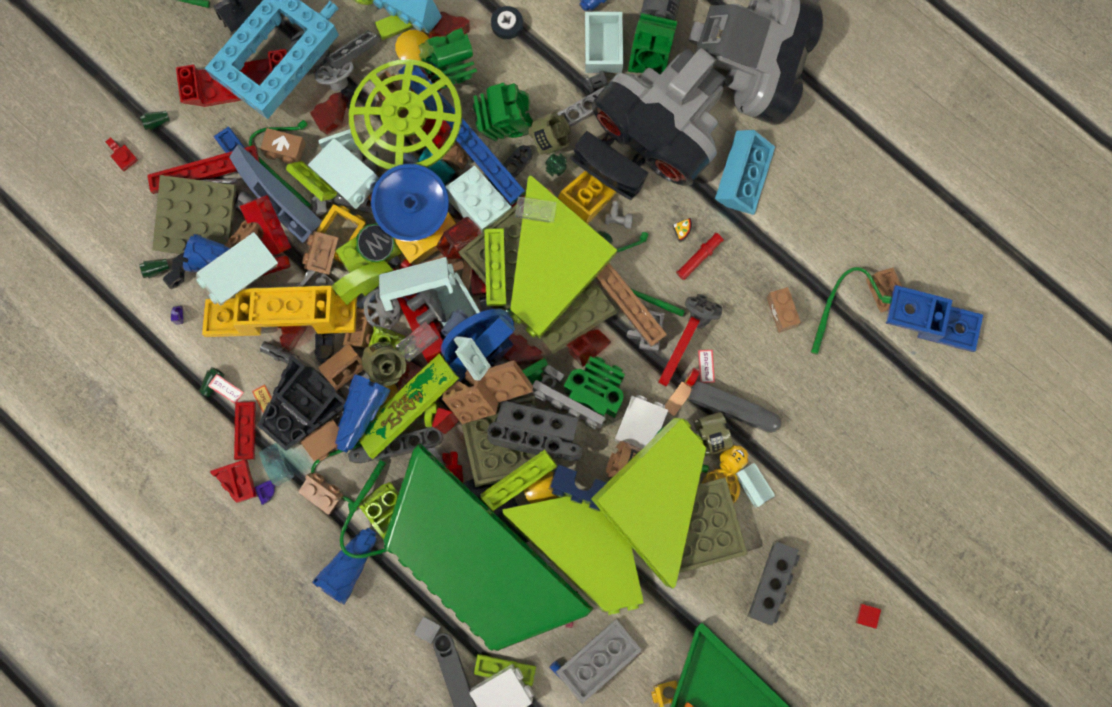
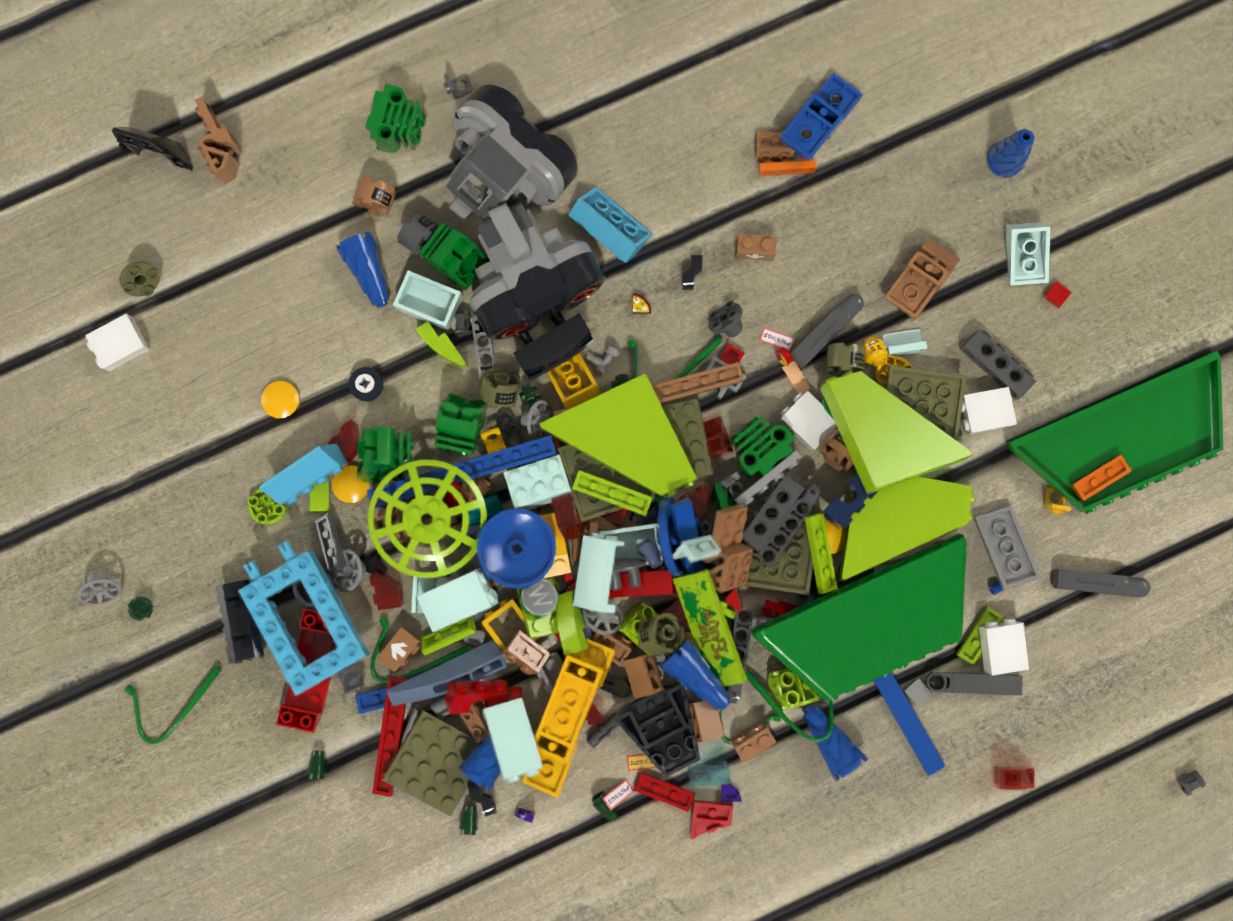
camera: 70 degrees left, 5 degrees up
(122, 156) = (341, 811): red plate -> none
(240, 116) = (350, 679): none -> flat silver bracket
(394, 634) = (909, 724): none -> blue tile
(417, 341) = (655, 594): clear plate -> none
(499, 152) = (495, 444): none -> yellow bracket
(535, 209) = (577, 432): clear plate -> none
(538, 172) = (531, 418): none -> light grey wheel
(570, 70) = (440, 345): none -> lime slope
(672, 329) = (731, 355): none -> red tile
(679, 350) = (756, 357): red beam -> none
(704, 251) = (673, 301): red pin -> none
(723, 590) = (988, 411): none -> white brick
(730, 261) = (694, 270): none -> black piece
(821, 329) = (792, 226): green piece -> none
(824, 475) = (922, 278): none -> medium nougat piece
(872, 308) = (786, 167): none -> orange plate
(895, 570) = (1028, 253): none -> light aqua slope
(982, 512) = (1010, 154): none -> blue cone

